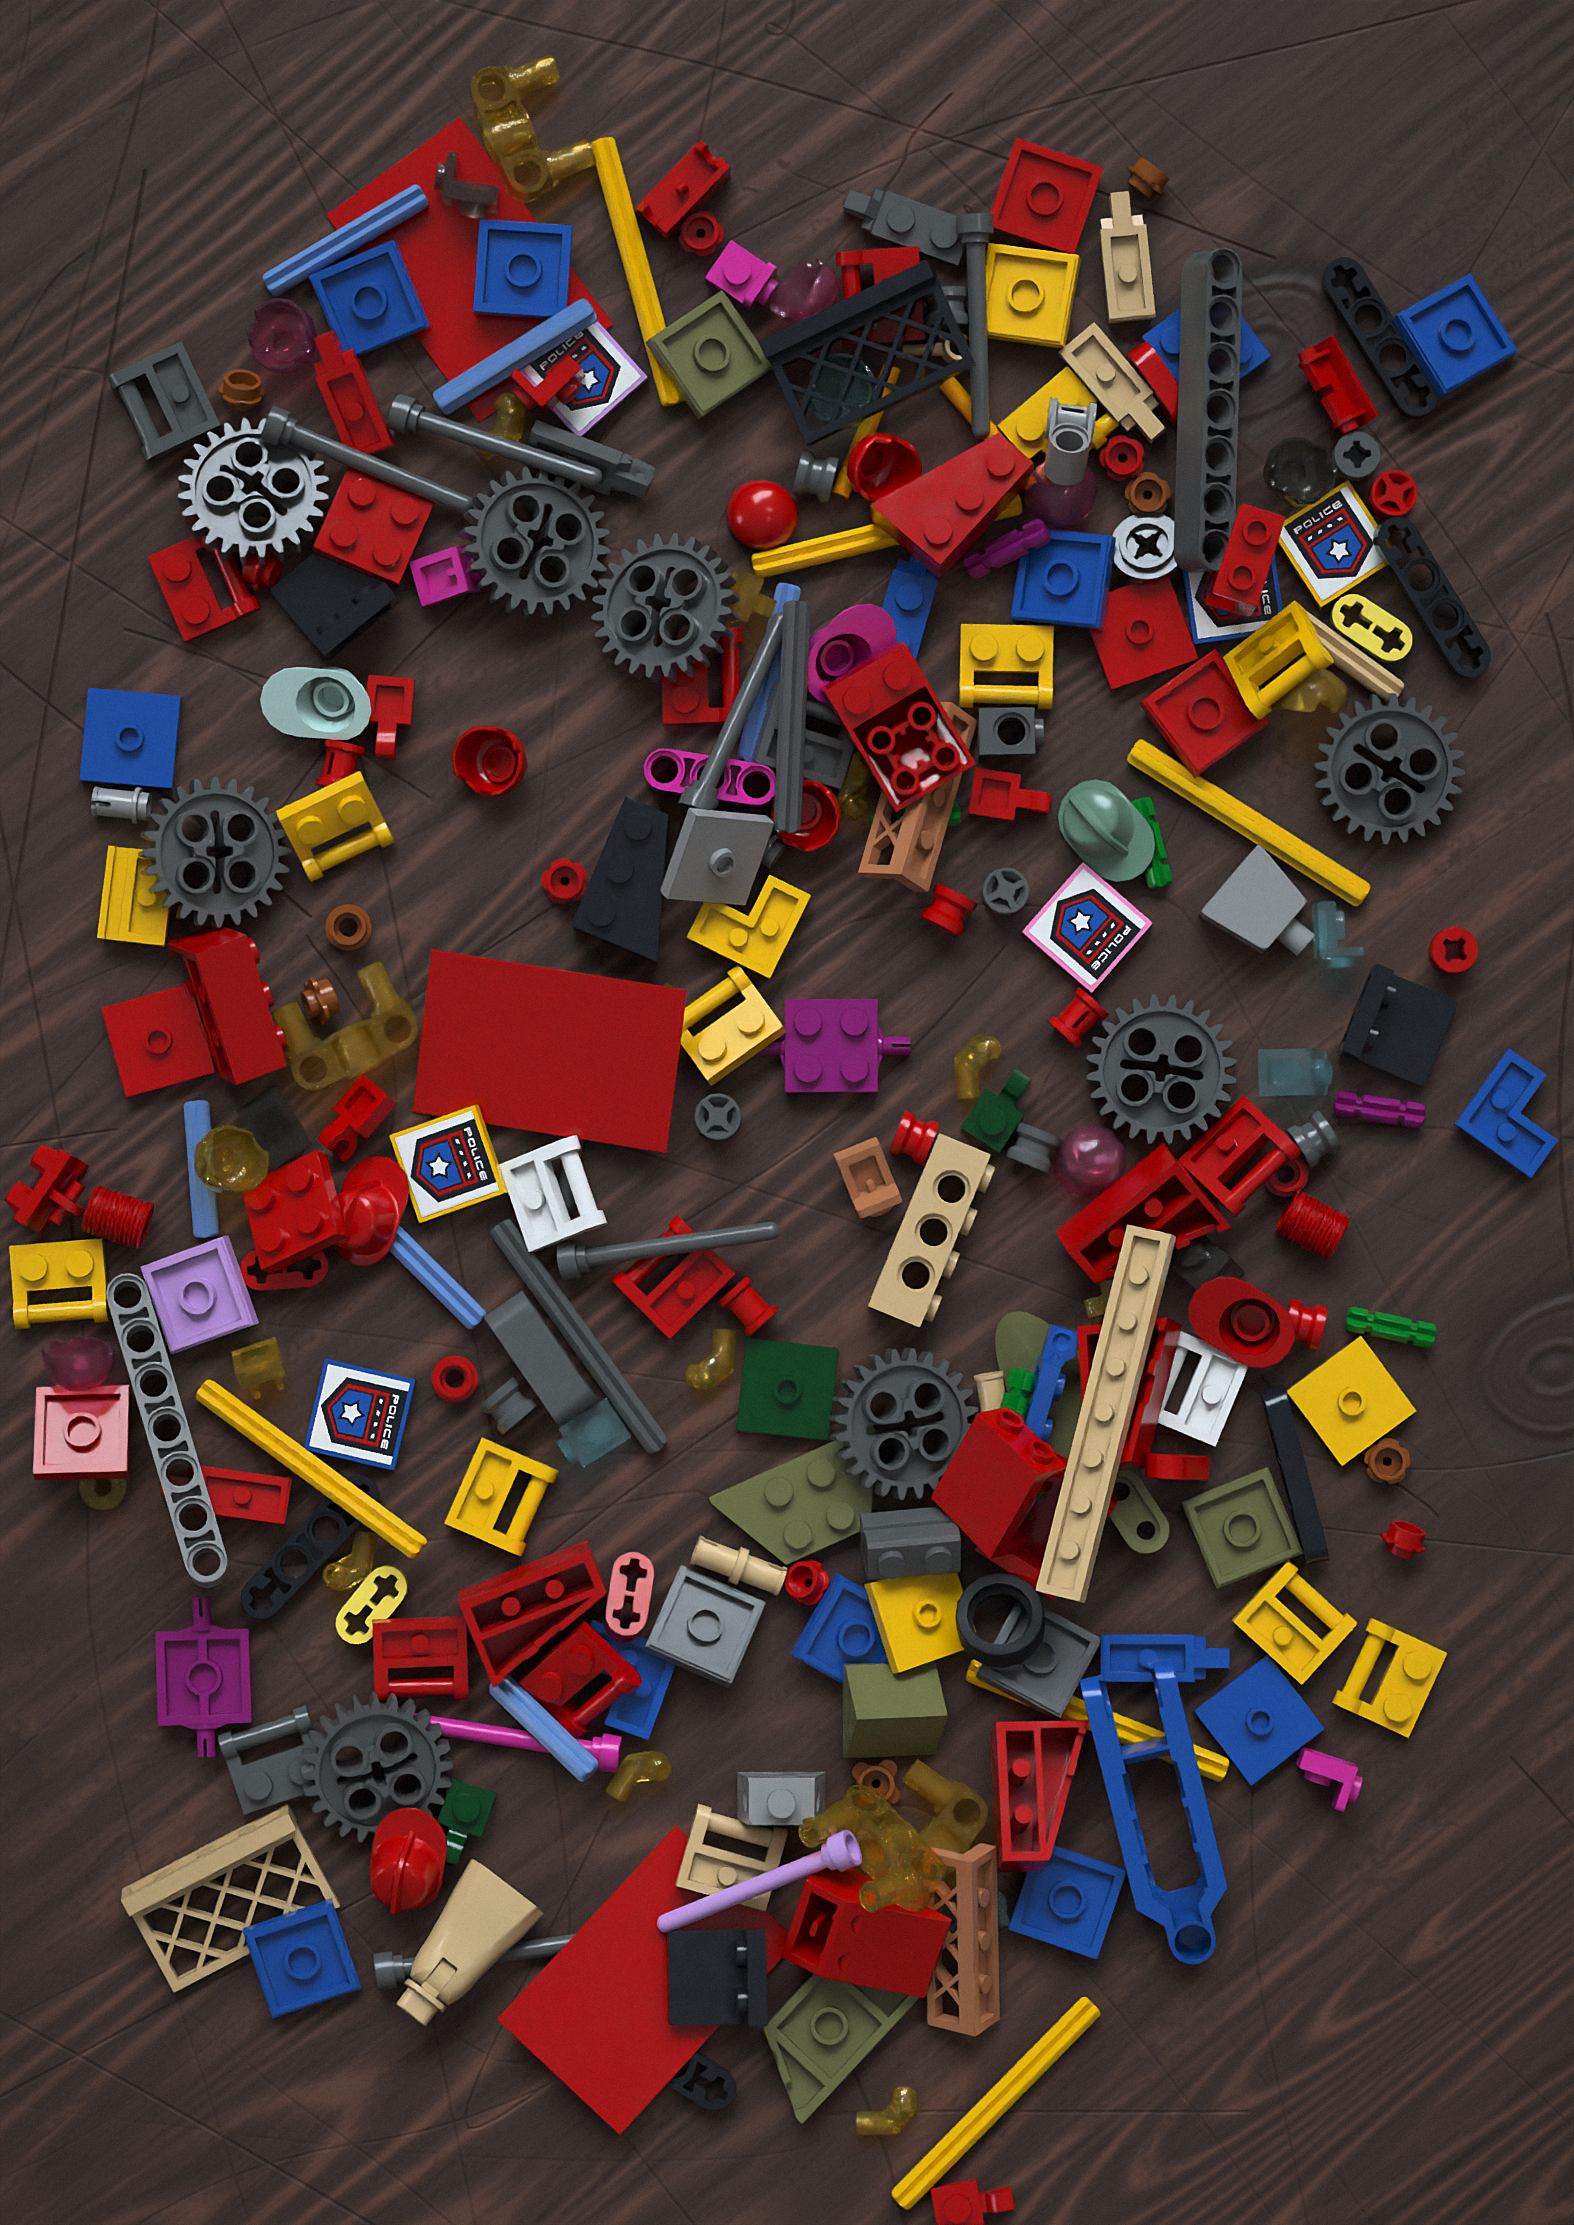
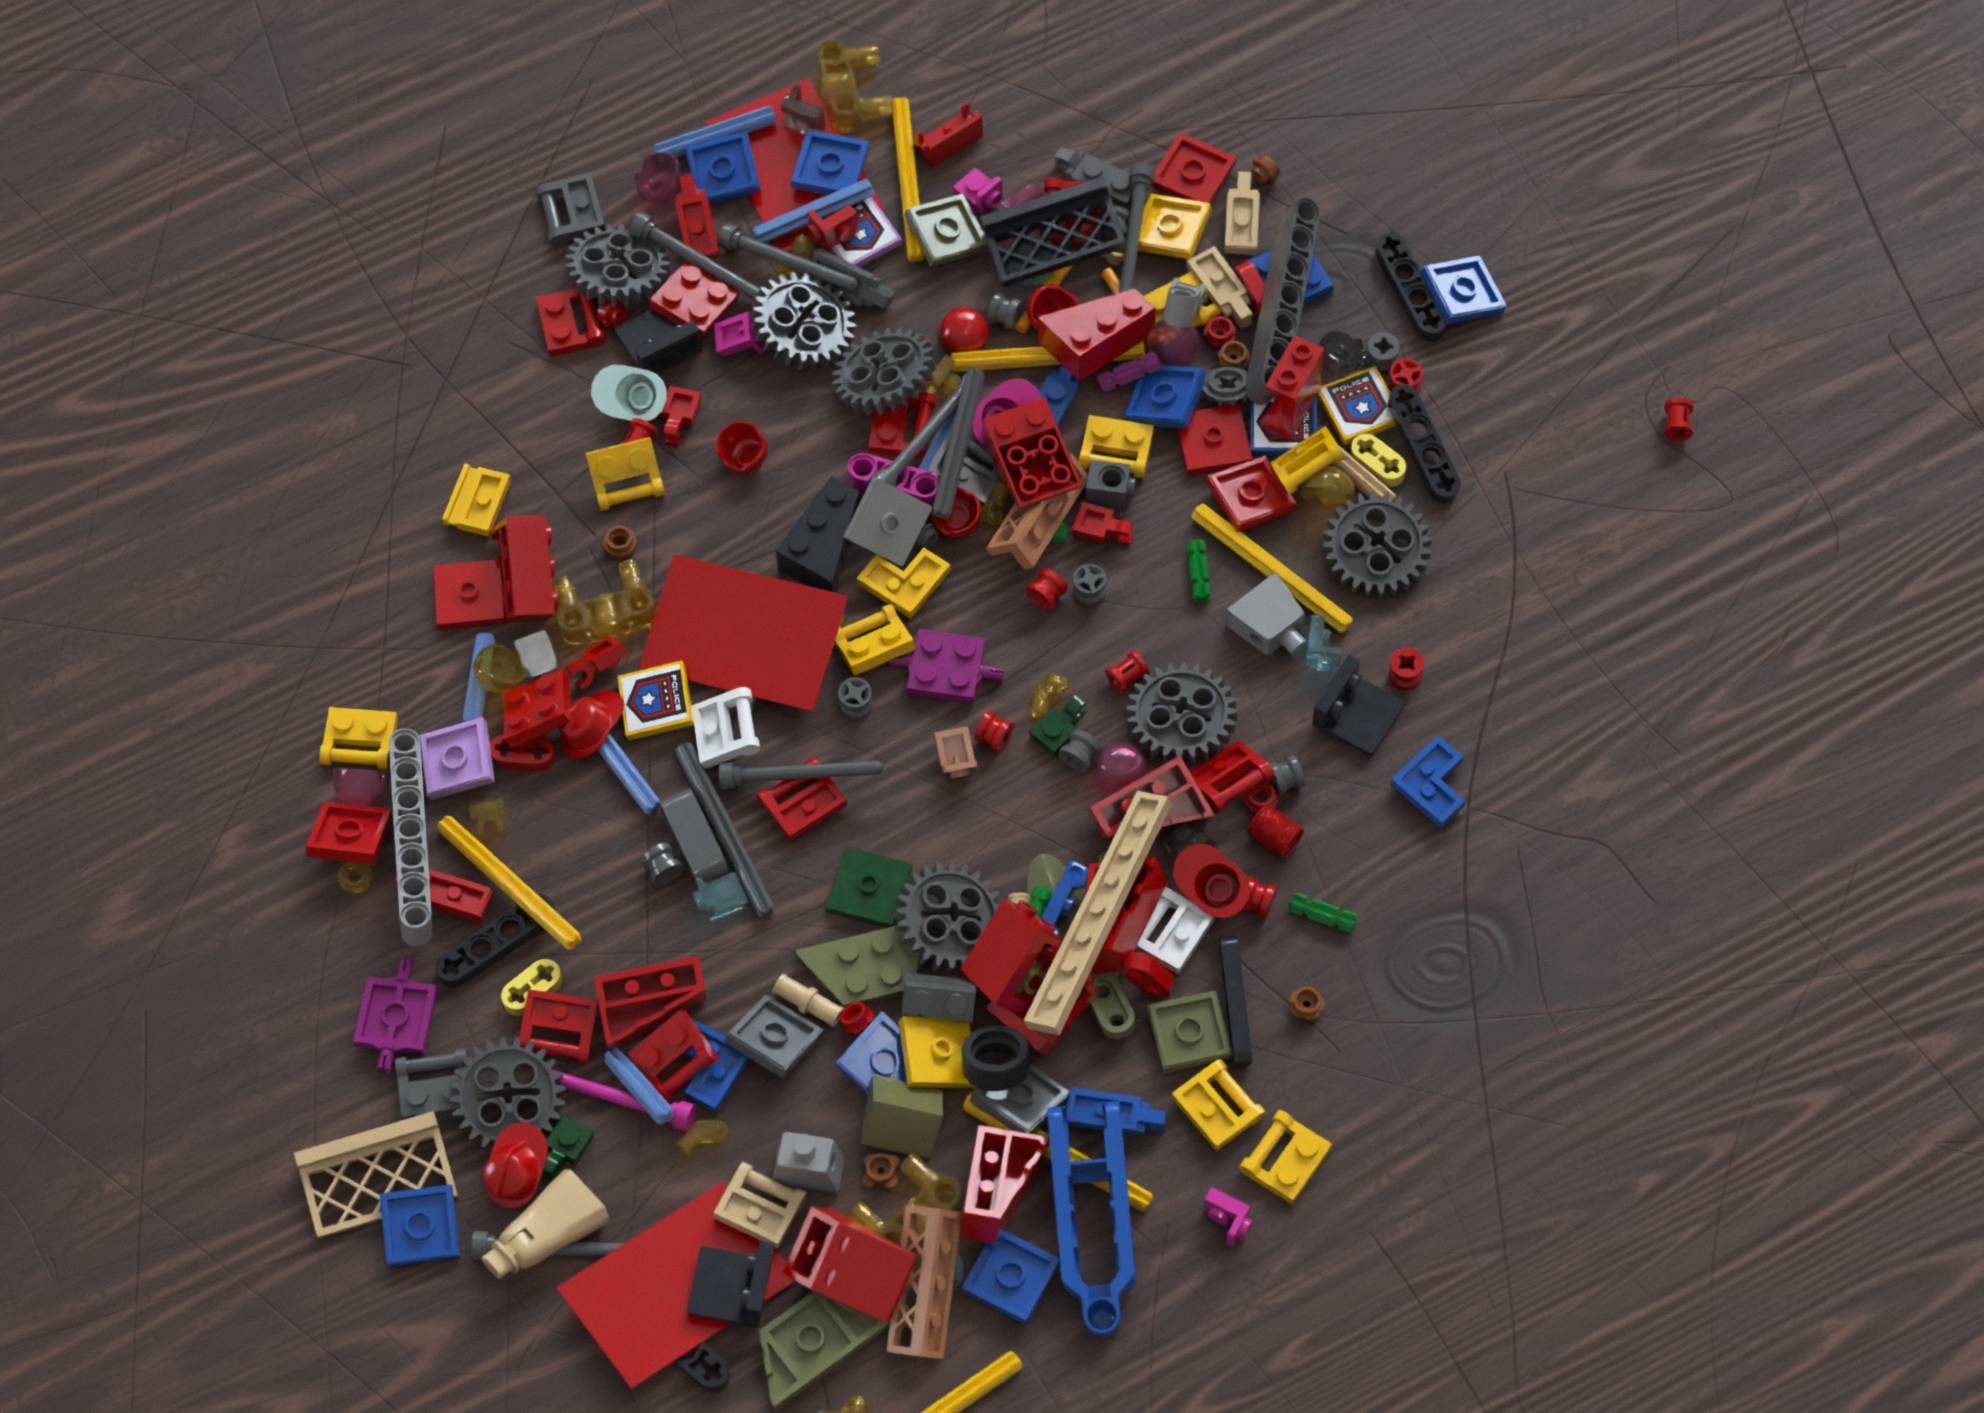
camera: 15 degrees right, 25 degrees down
(53, 1194) = (368, 675): red hips -> none
(117, 1217) = (411, 697): red piece -> none
(123, 804) = (481, 442): light grey pin -> none
(130, 738) = (497, 405): blue plate -> none
(173, 852) = (507, 468): dark grey gear -> none
(241, 389) = (623, 208): dark orange plate -> none
(319, 1000) = (588, 581): dark orange plate -> none
(354, 1567) = (518, 962): clear yellow arm -> none
(360, 1414) = (554, 857): tile -> none
(440, 1373) = (627, 834): red plate -> none
(487, 1489) = (635, 918): yellow plate -> none
(552, 881) = (775, 527): red plate -> none
(618, 1595) = (715, 1004): beam -> none
(713, 233) = (952, 155): red plate -> none
(717, 1365) = (819, 863): clear yellow arm -> none
(748, 1306) = (851, 824): red bush -> none
(838, 1853) = (841, 1191): lavender piece -> none
(891, 1850) = (872, 1196): clear yellow piece -> none
(945, 1159) = (1014, 749): tan brick -> none
(1087, 927) = (1144, 617): tile -> none
(1106, 830) = (1168, 556): sand green piece -> none
(1259, 1719) = (1180, 1171): blue plate -> none
(1294, 1072) = (1278, 728): clear light blue bracket -> none
(1338, 385) = (1376, 305): red hinge -> none
(1350, 1400) = (1285, 958): yellow plate -> none
(1379, 1109) = (1337, 766): magenta axle -> none
(1404, 1539) = (1311, 1058): red plate -> none

